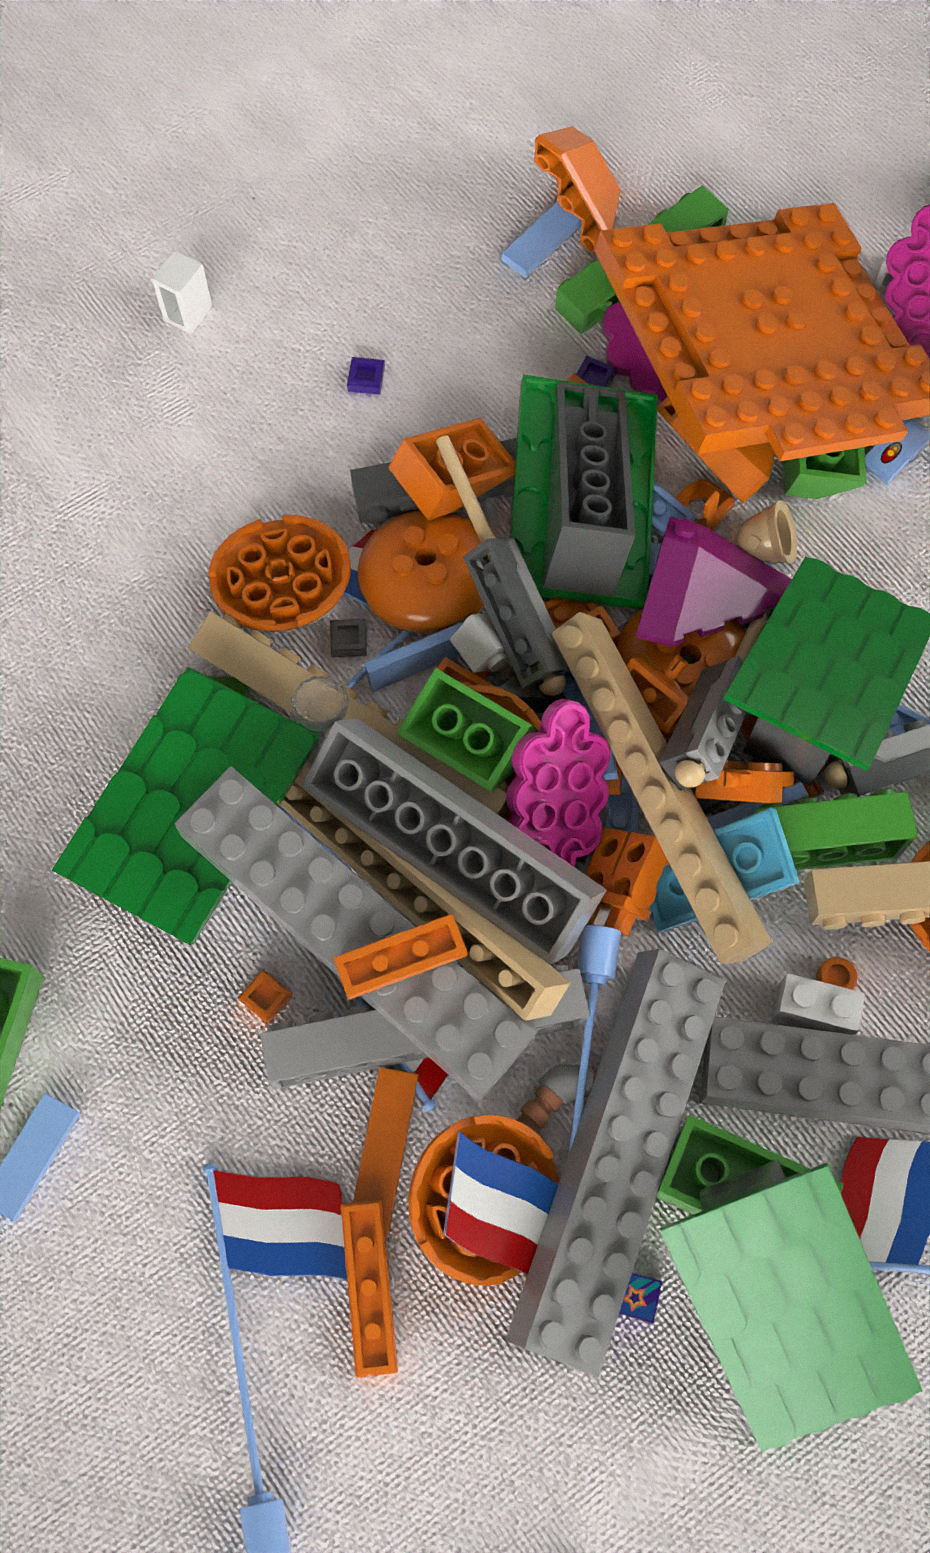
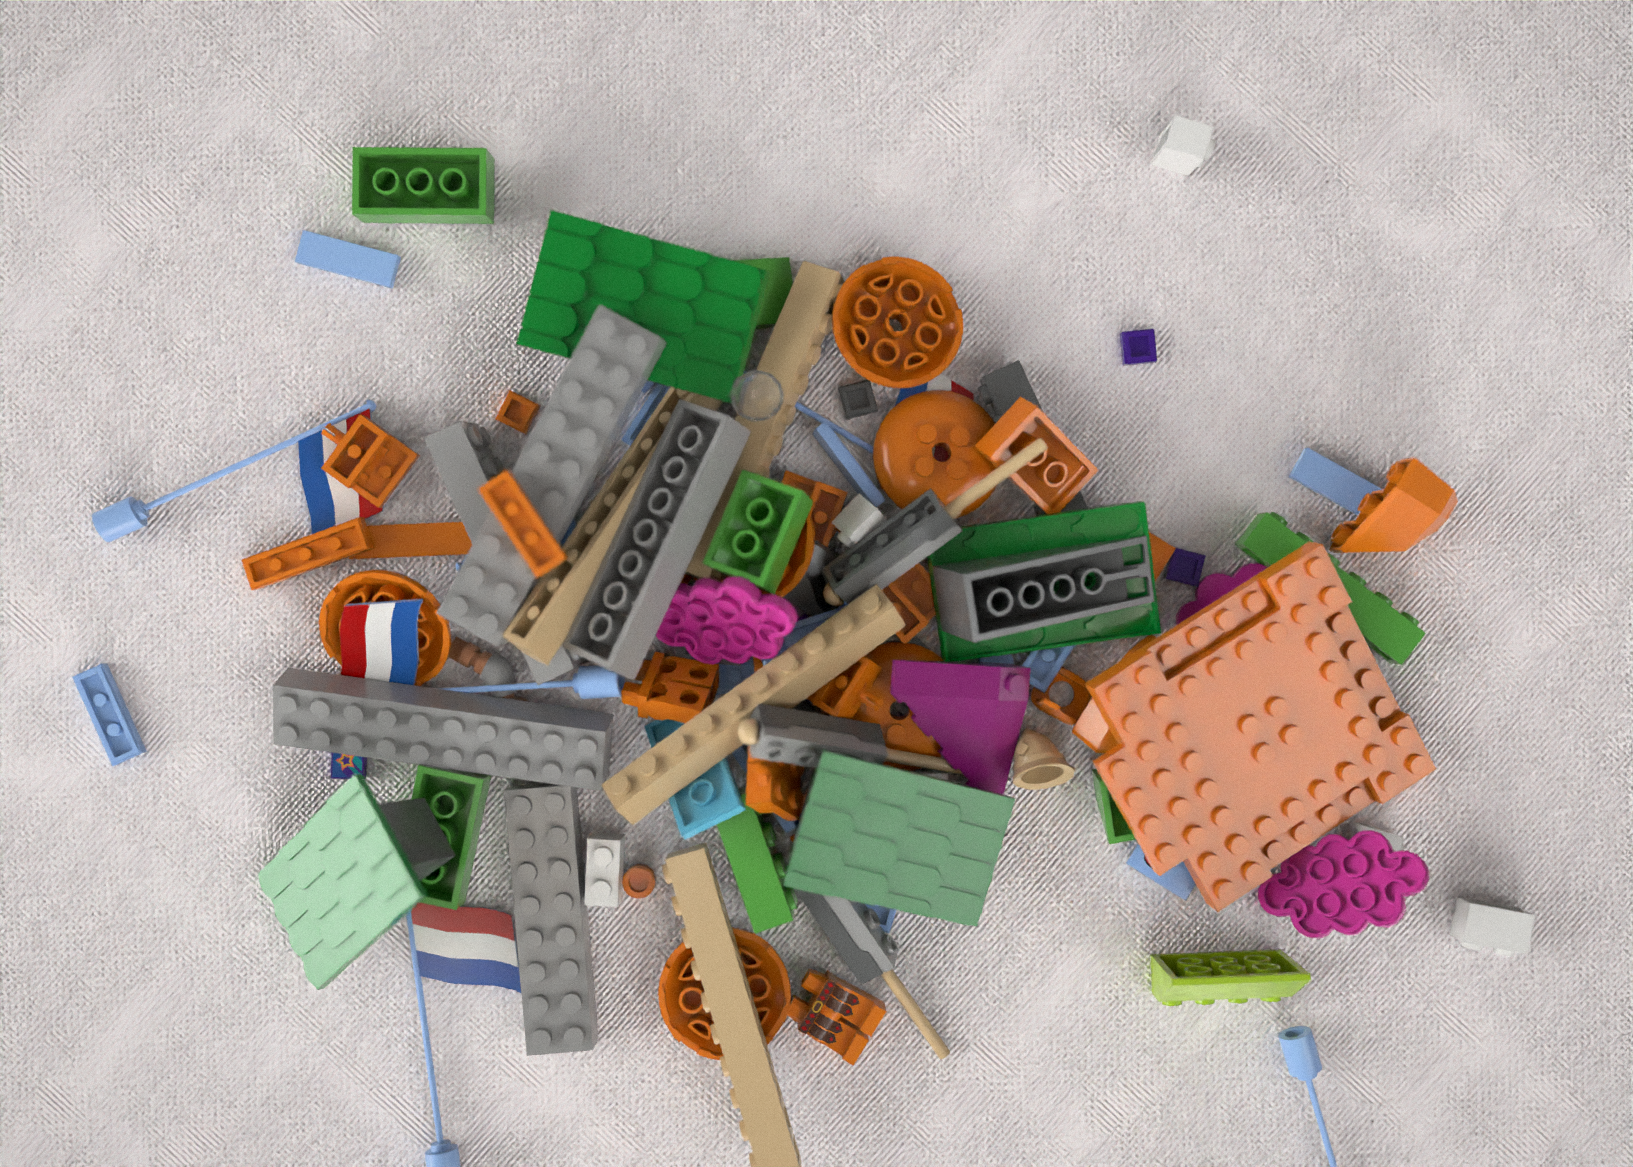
camera: 75 degrees right, 20 degrees up
(274, 1178) = (368, 459): none -> orange plate

